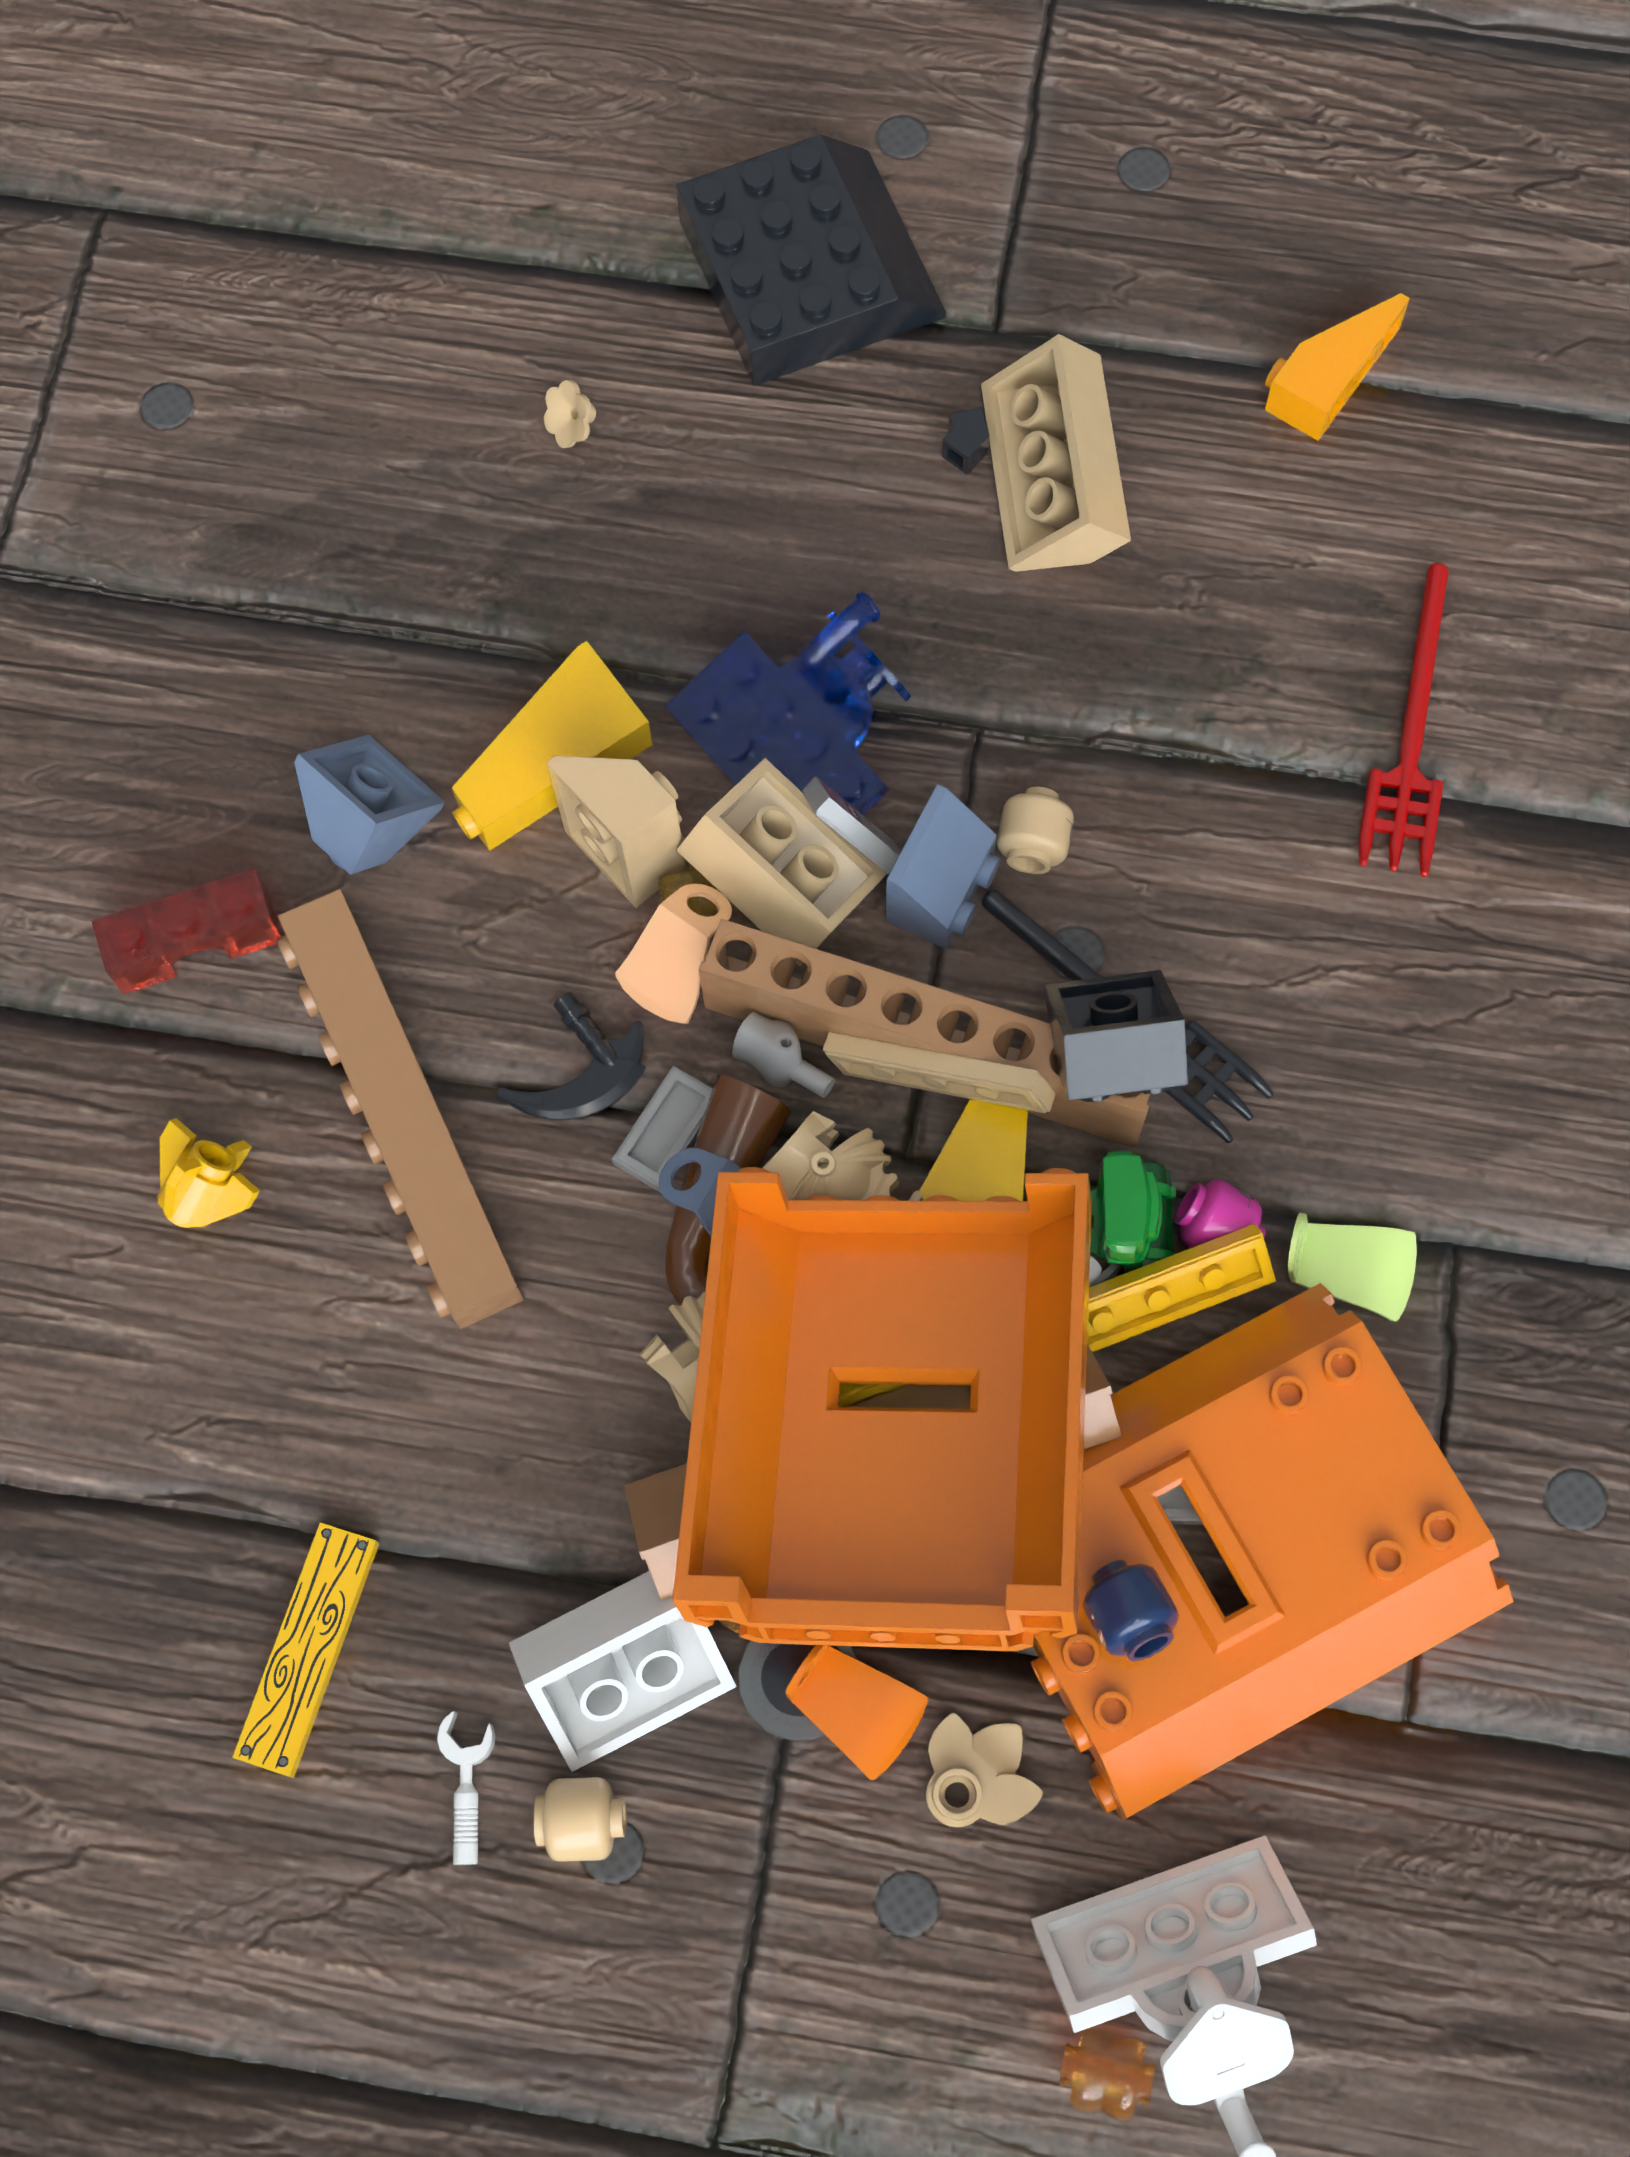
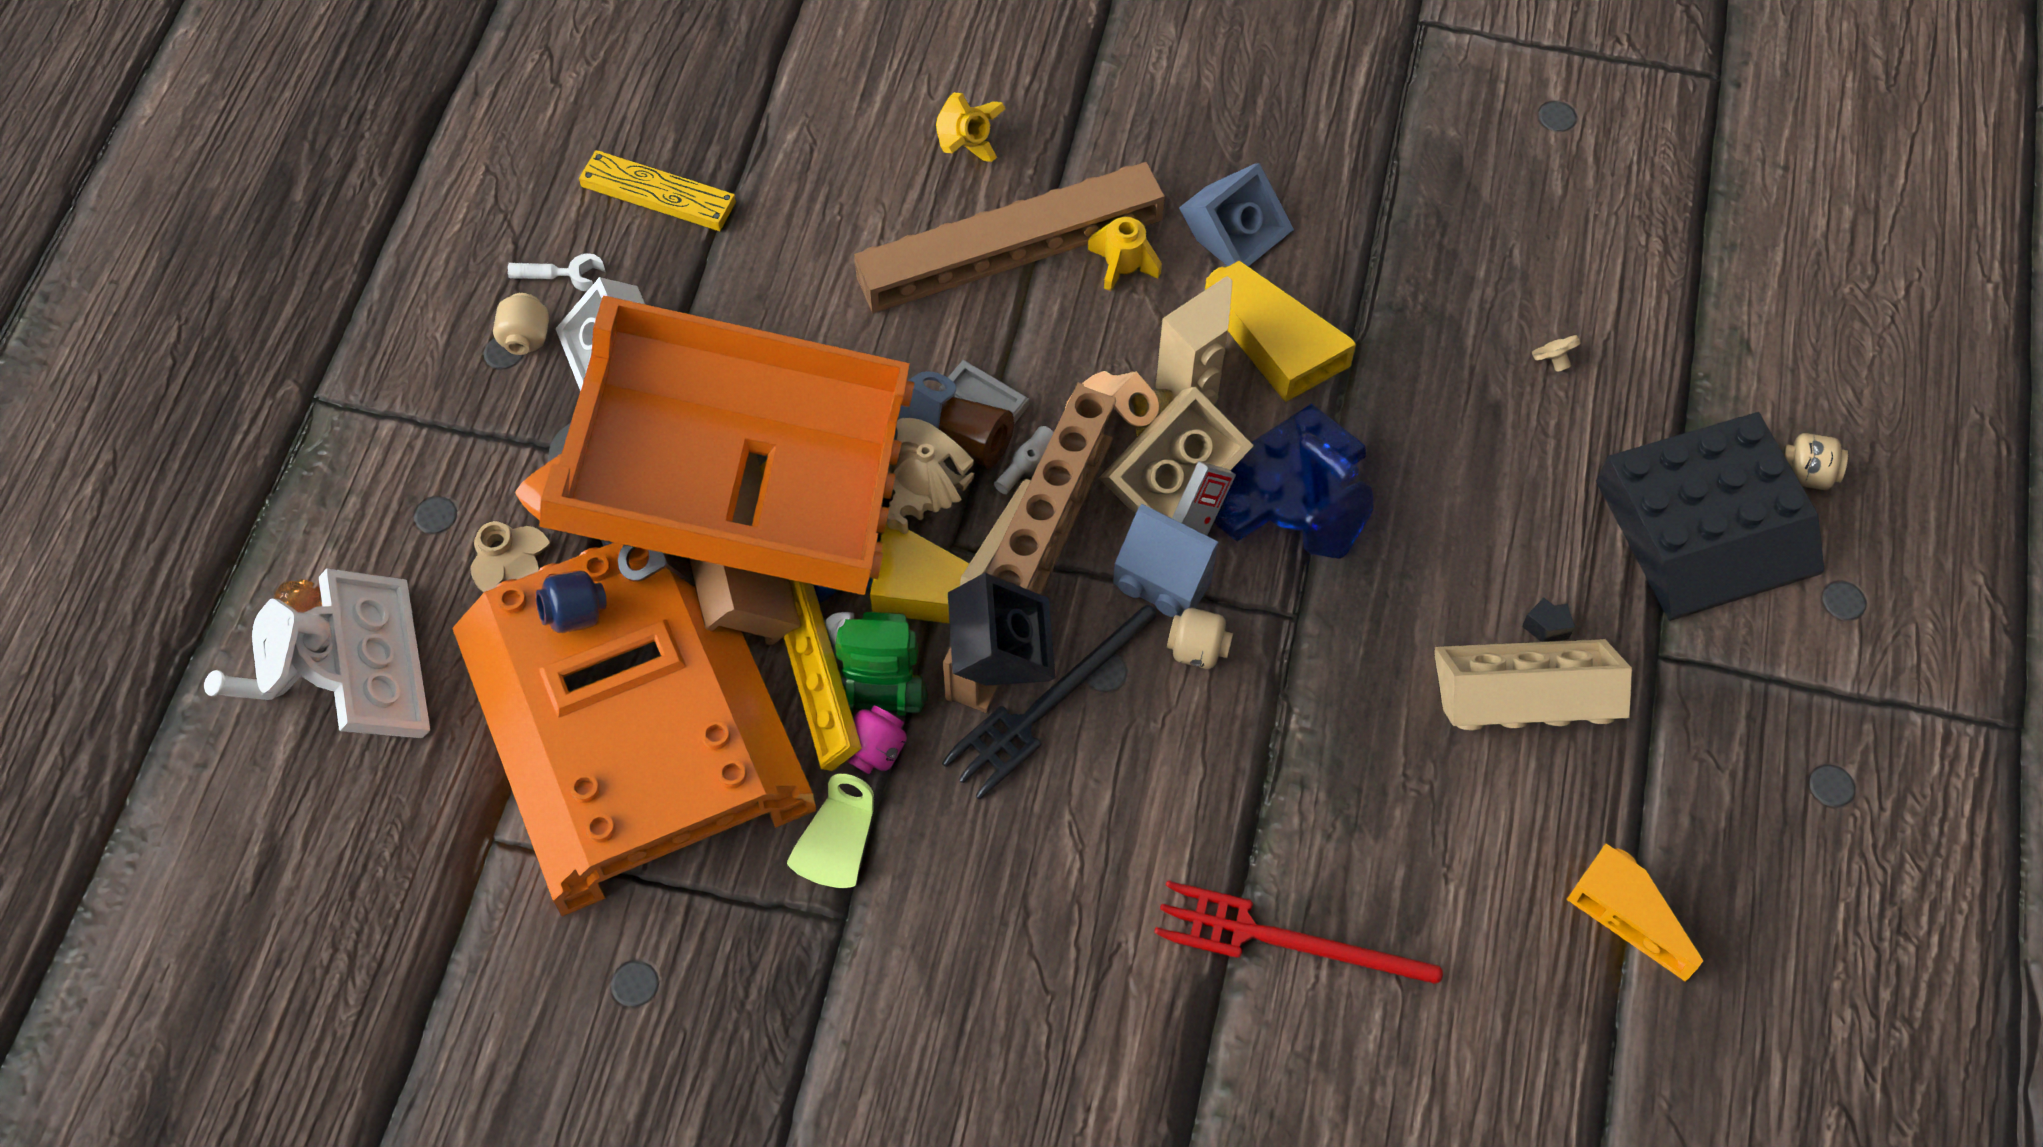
camera: 90 degrees right, 10 degrees down
(148, 939) = (1139, 106): clear red arch -> none
(419, 947) = (1125, 249): none -> yellow brick
(604, 1081) = (1025, 362): black piece -> none
(727, 135) = (1817, 460): none -> tan head

